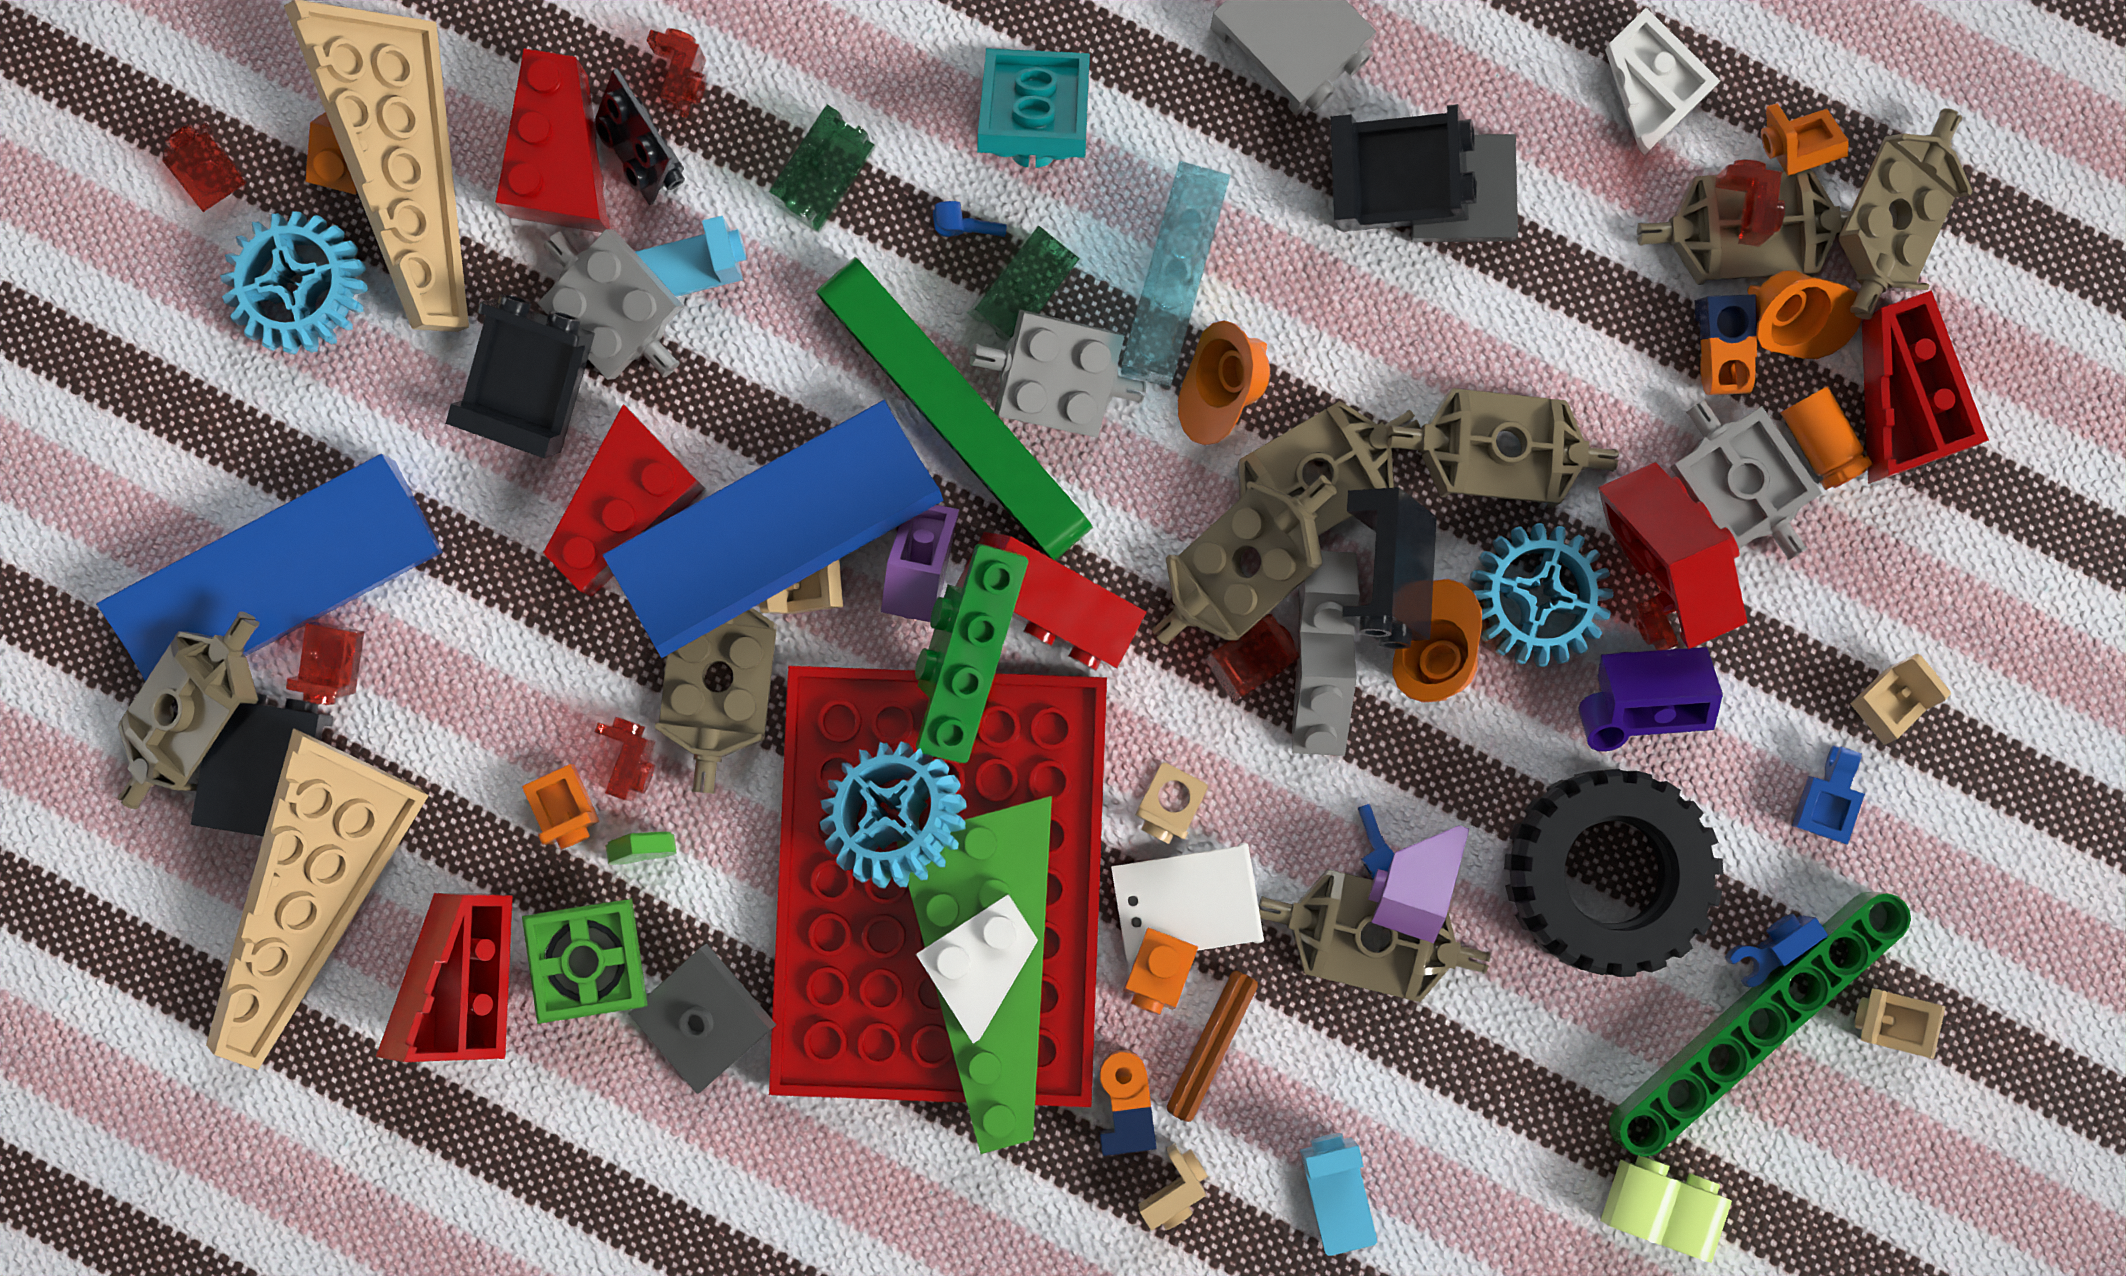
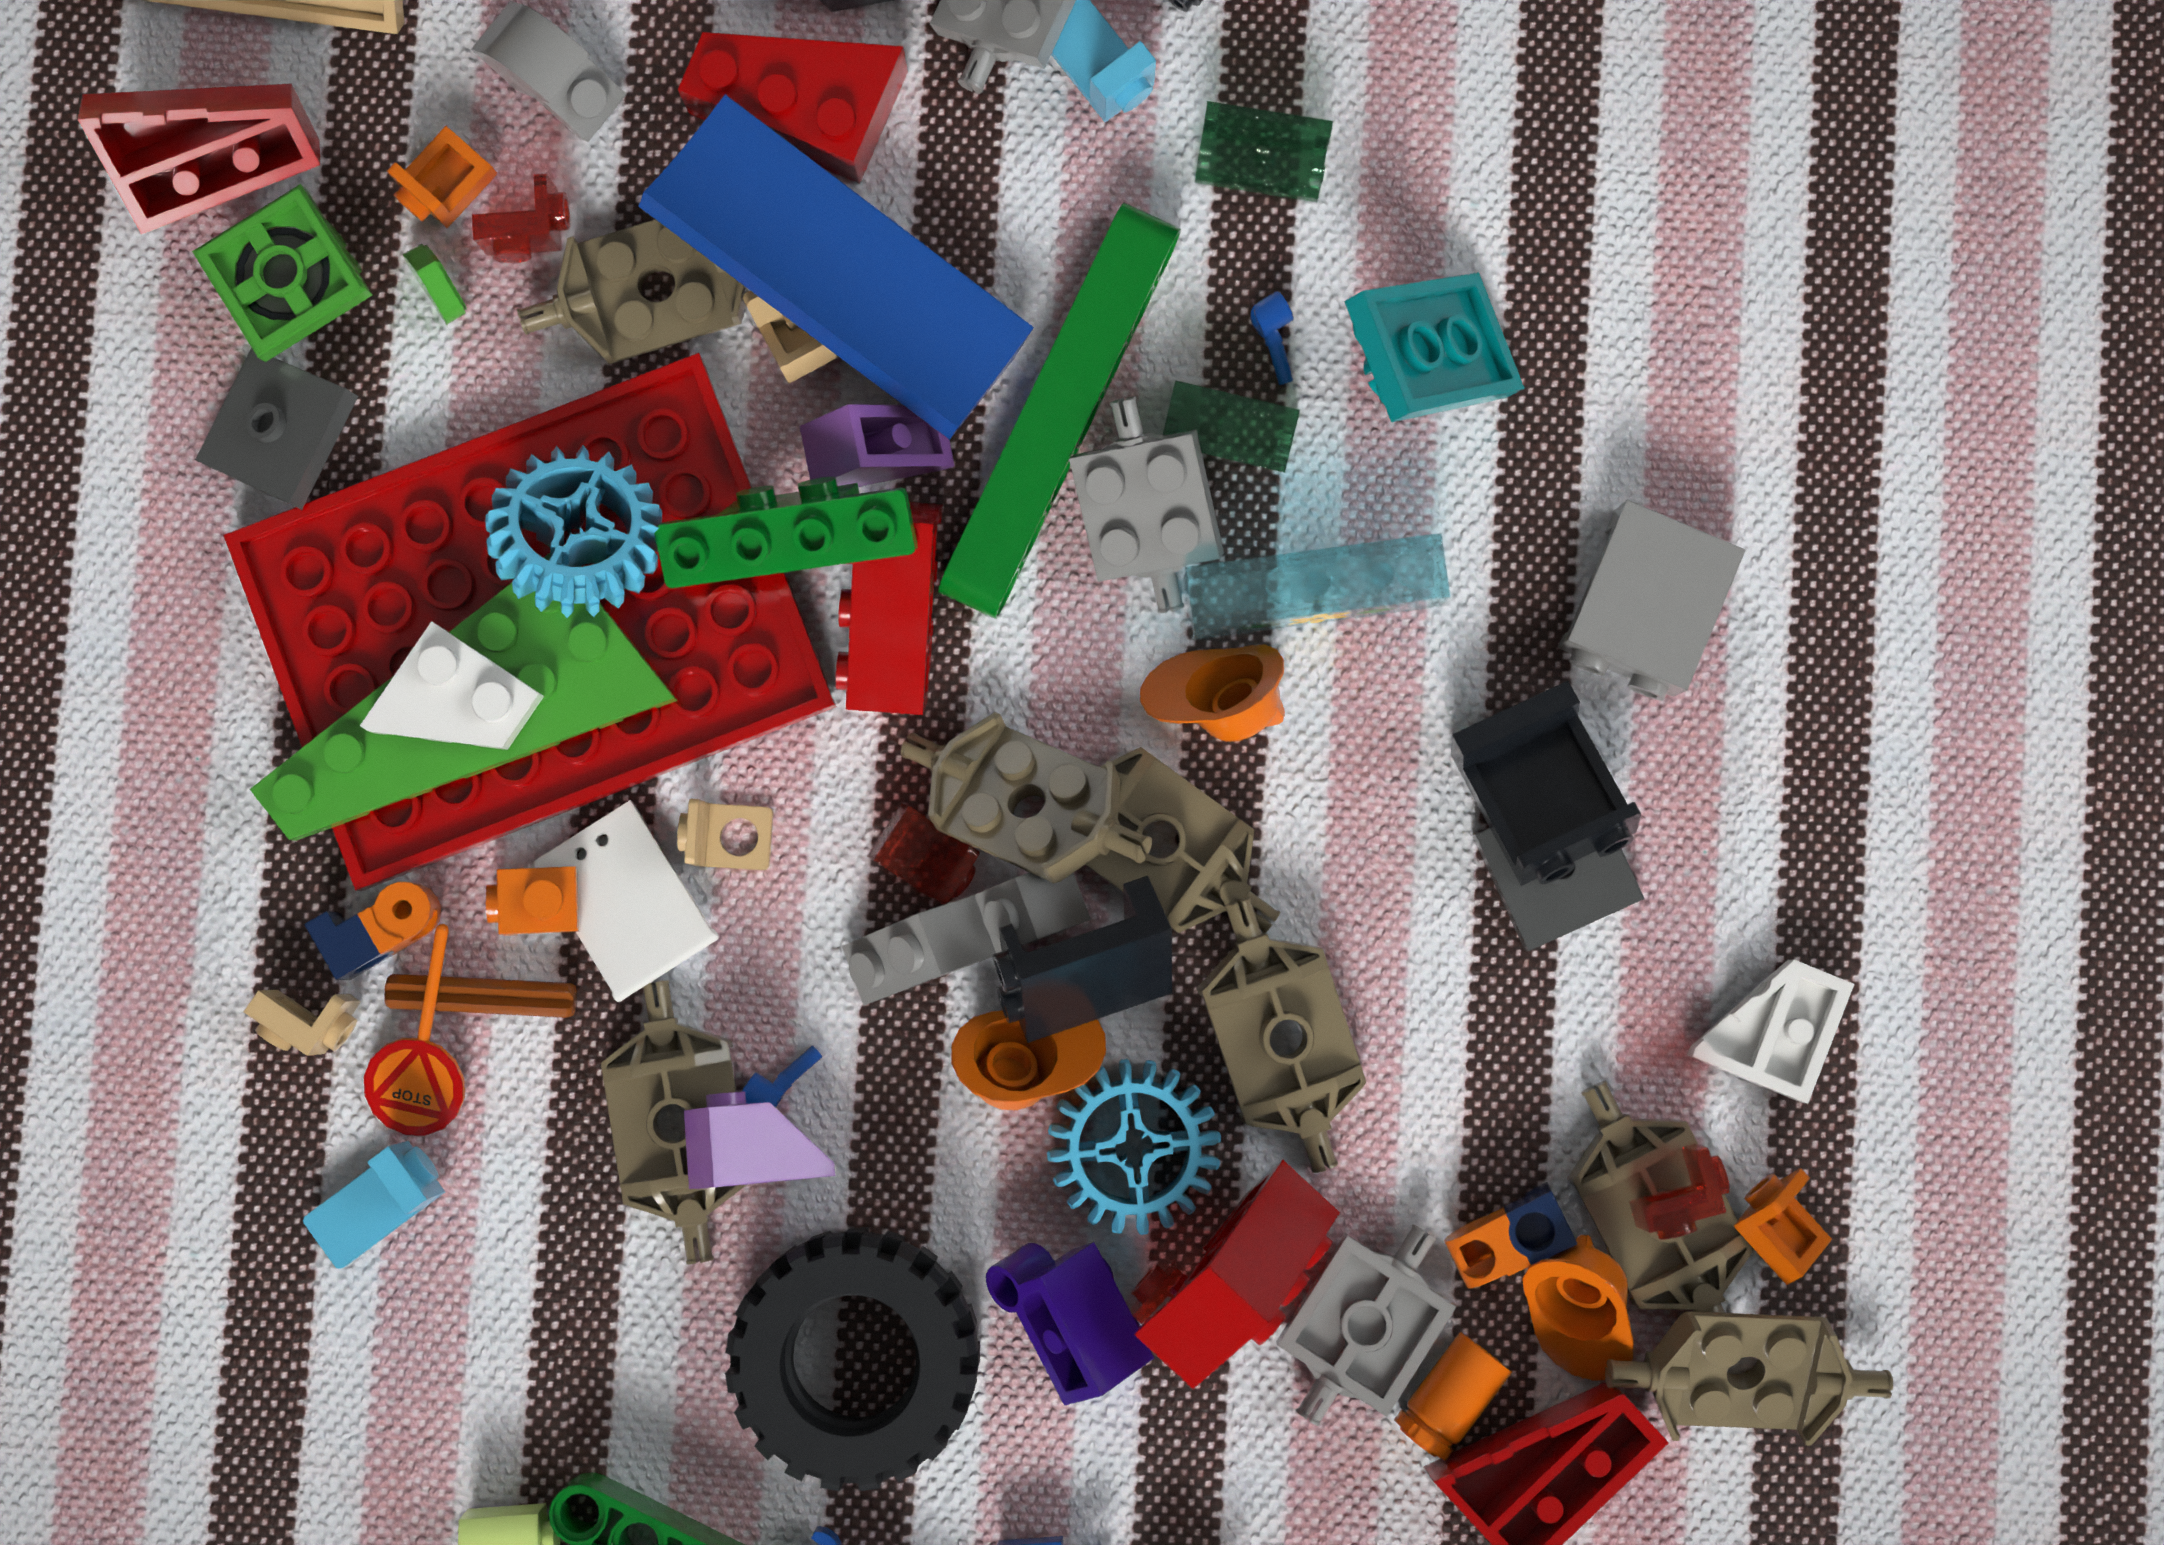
camera: 65 degrees right, 0 degrees up
(511, 686) = (550, 67): none -> light grey brick
(1257, 1123) = (413, 1081): none -> piece

